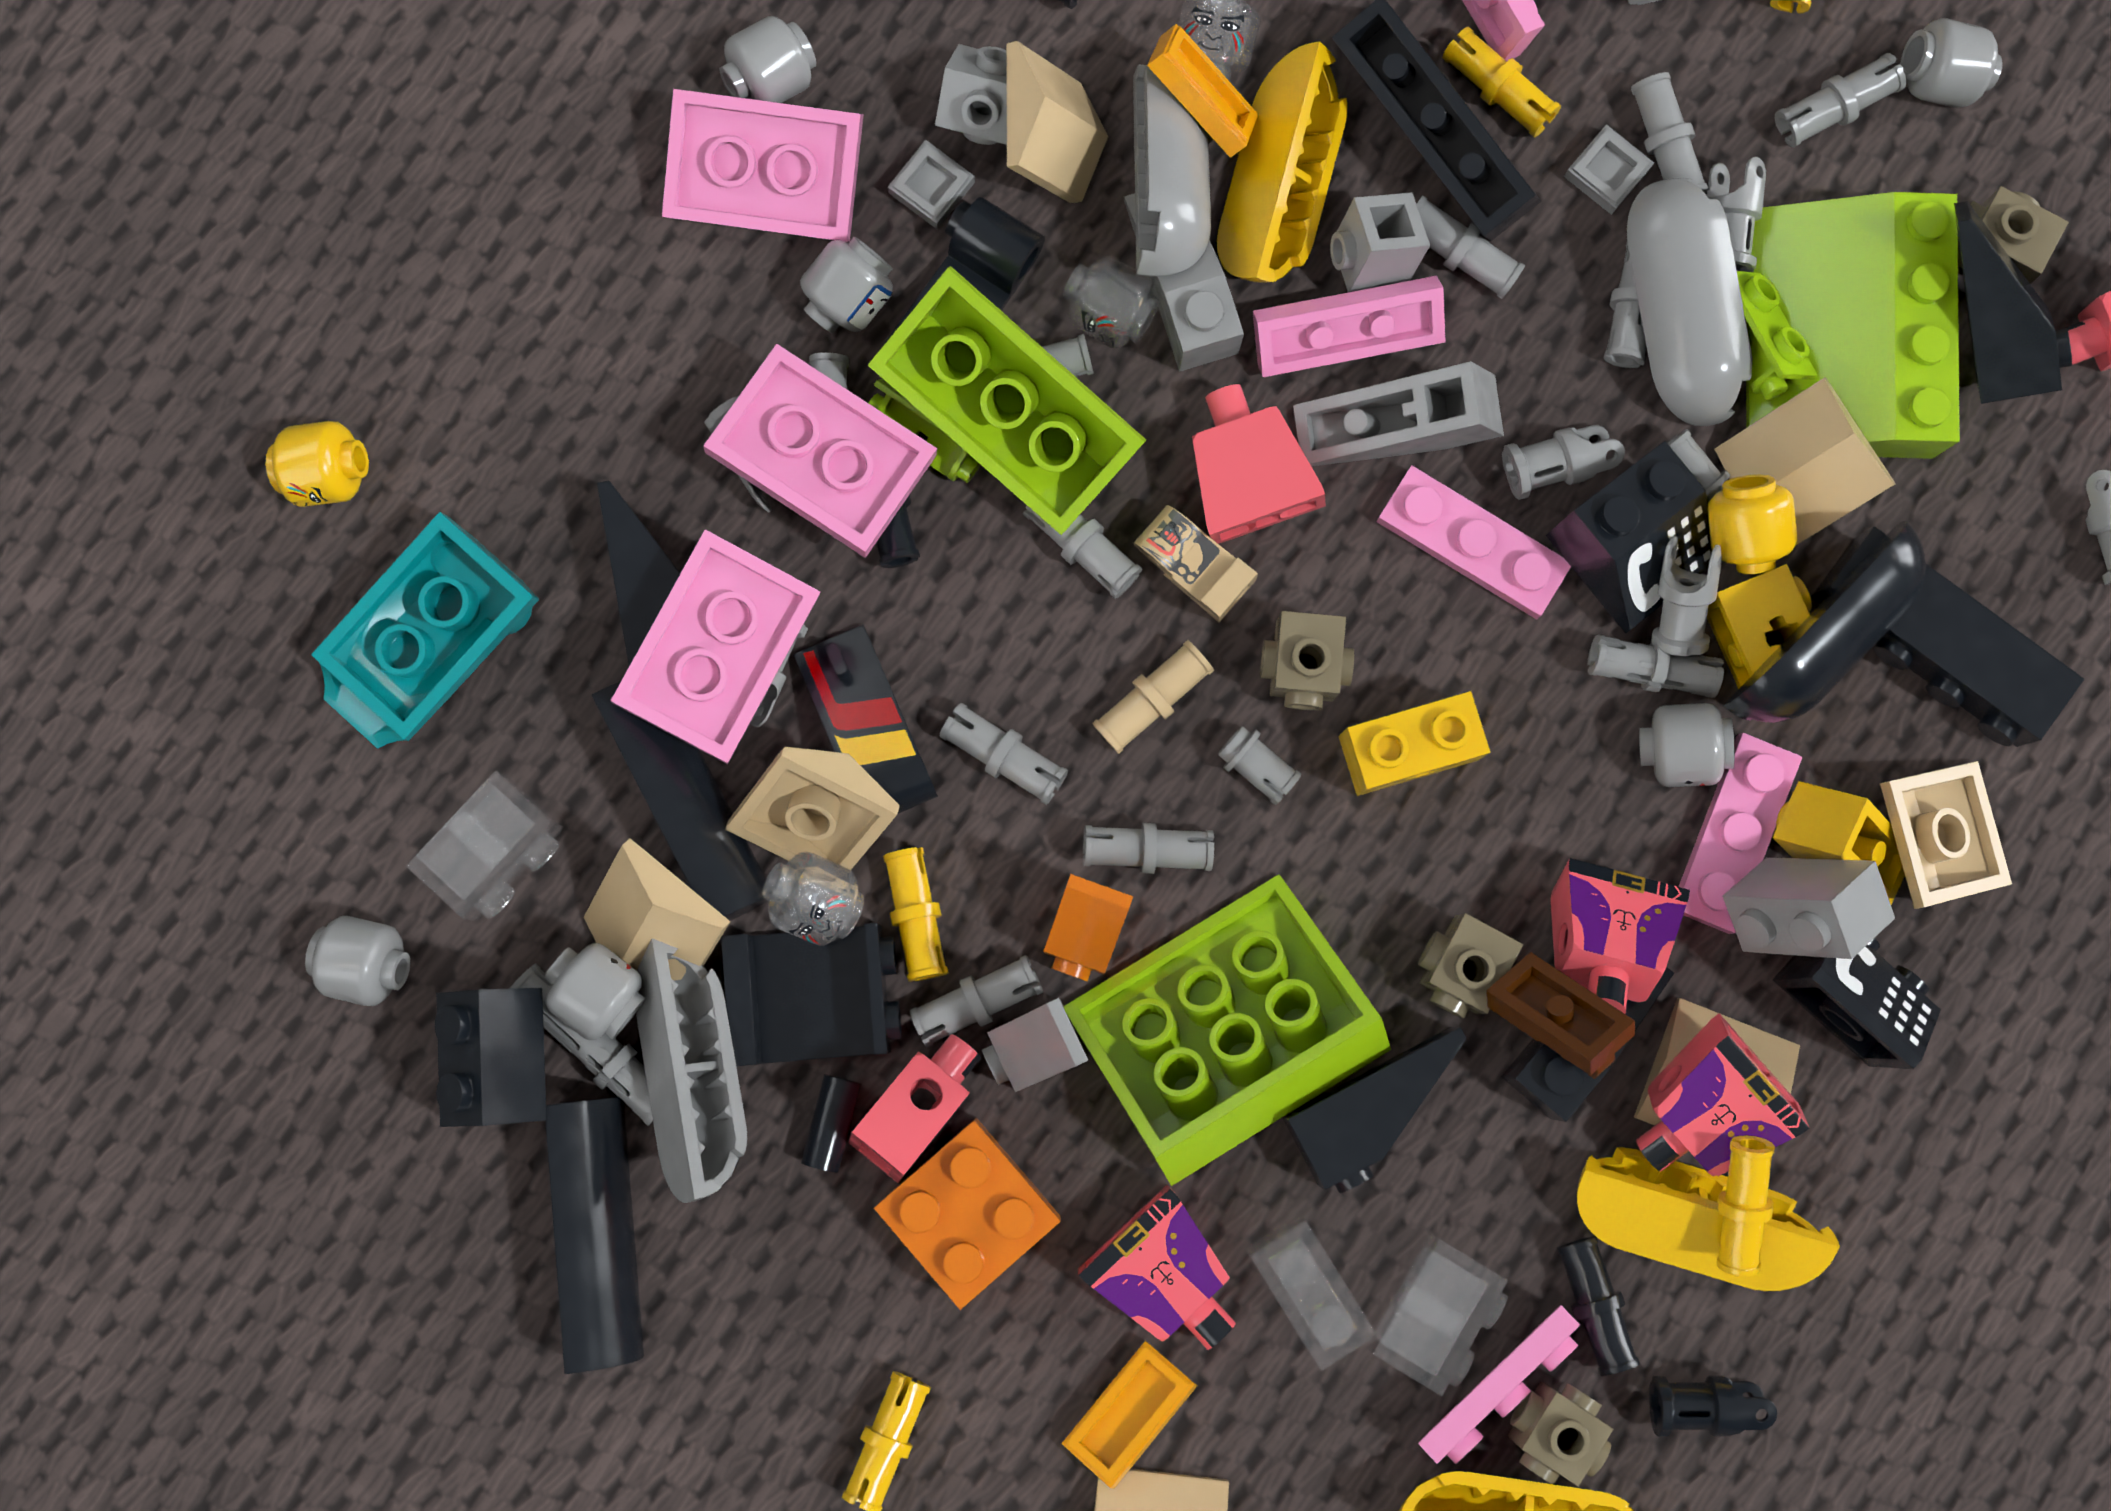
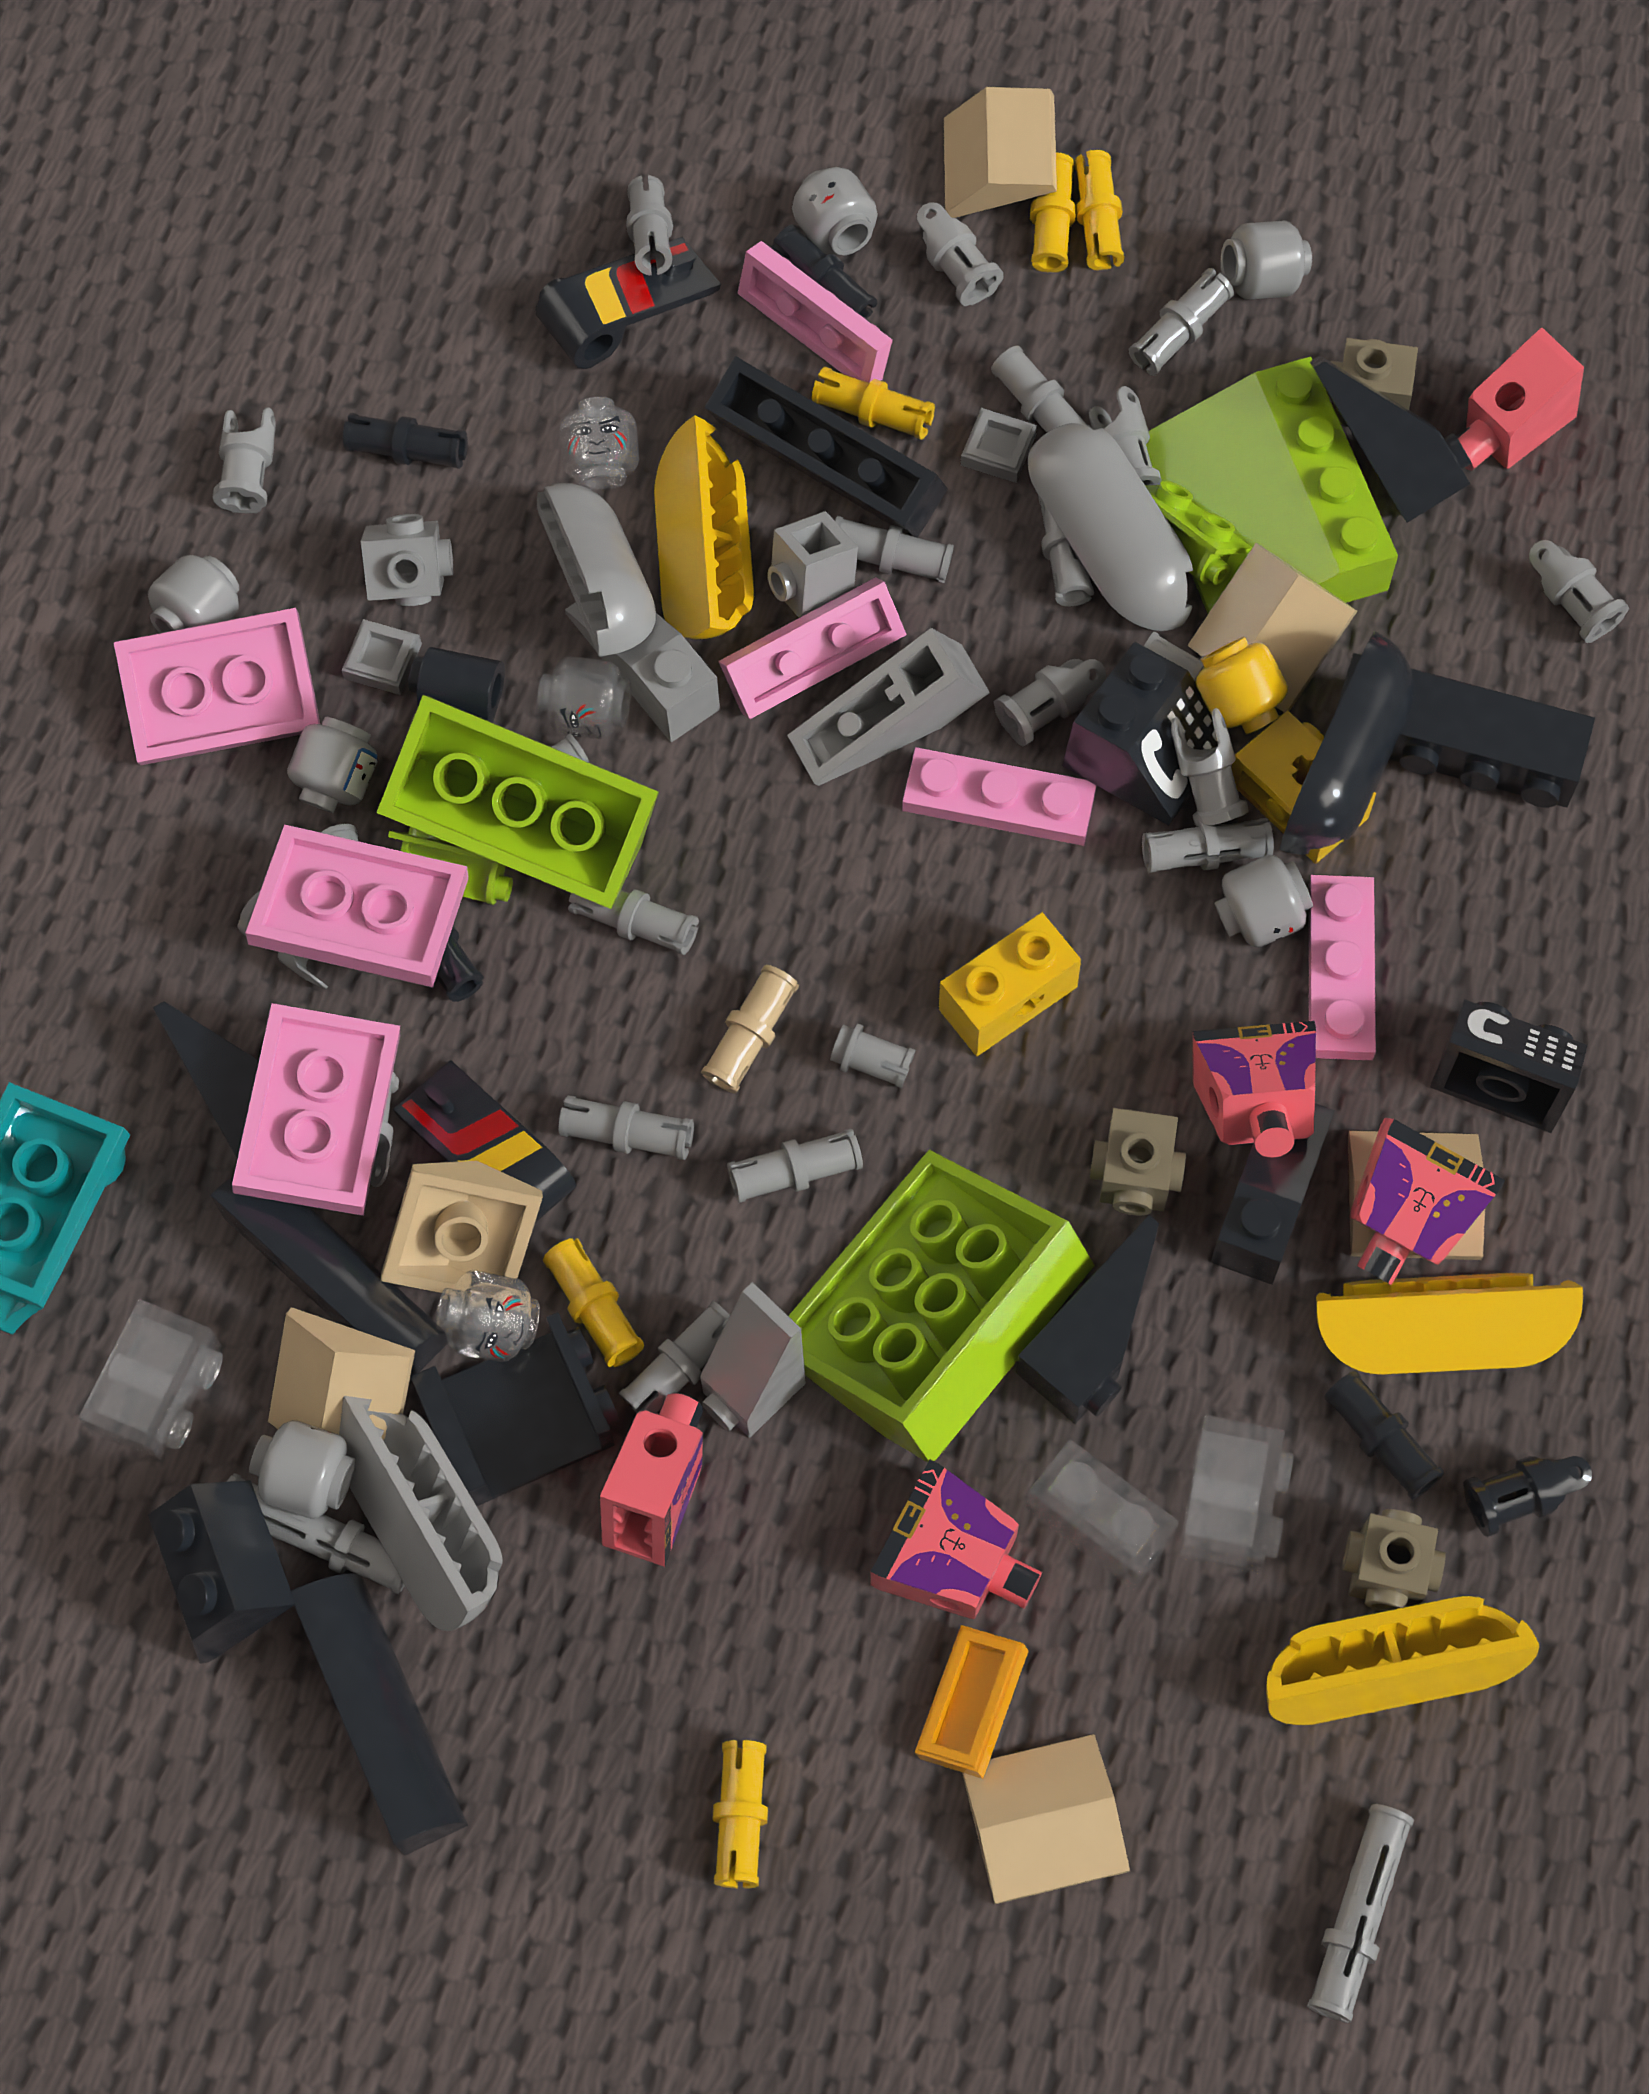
camera: 15 degrees left, 15 degrees down
(357, 960) = (56, 1531): light grey head -> none
(831, 1123) = (578, 1527): black axle -> none
(968, 1213) = (742, 1557): orange brick -> none
(1050, 125) = (475, 565): tan slope -> none
(1086, 927) = (761, 1241): orange slope -> none
(1195, 562) = (747, 897): tan leg -> none
(1203, 90) = (604, 489): light orange tile -> none
(1251, 468) = (769, 797): coral torso -> none
(1312, 637) = (881, 942): dark tan brick -> none
(1501, 1387) = (1319, 1541): bright pink plate -> none
(1561, 1014) = (1235, 1157): reddish brown plate -> none
(1745, 1205) = (1476, 1275): yellow pin -> none
(1809, 907) = (1427, 992): light grey brick -> none
(1839, 827) = (1442, 935): yellow slope -> none
(1945, 834) = (1532, 900): tan slope -> none

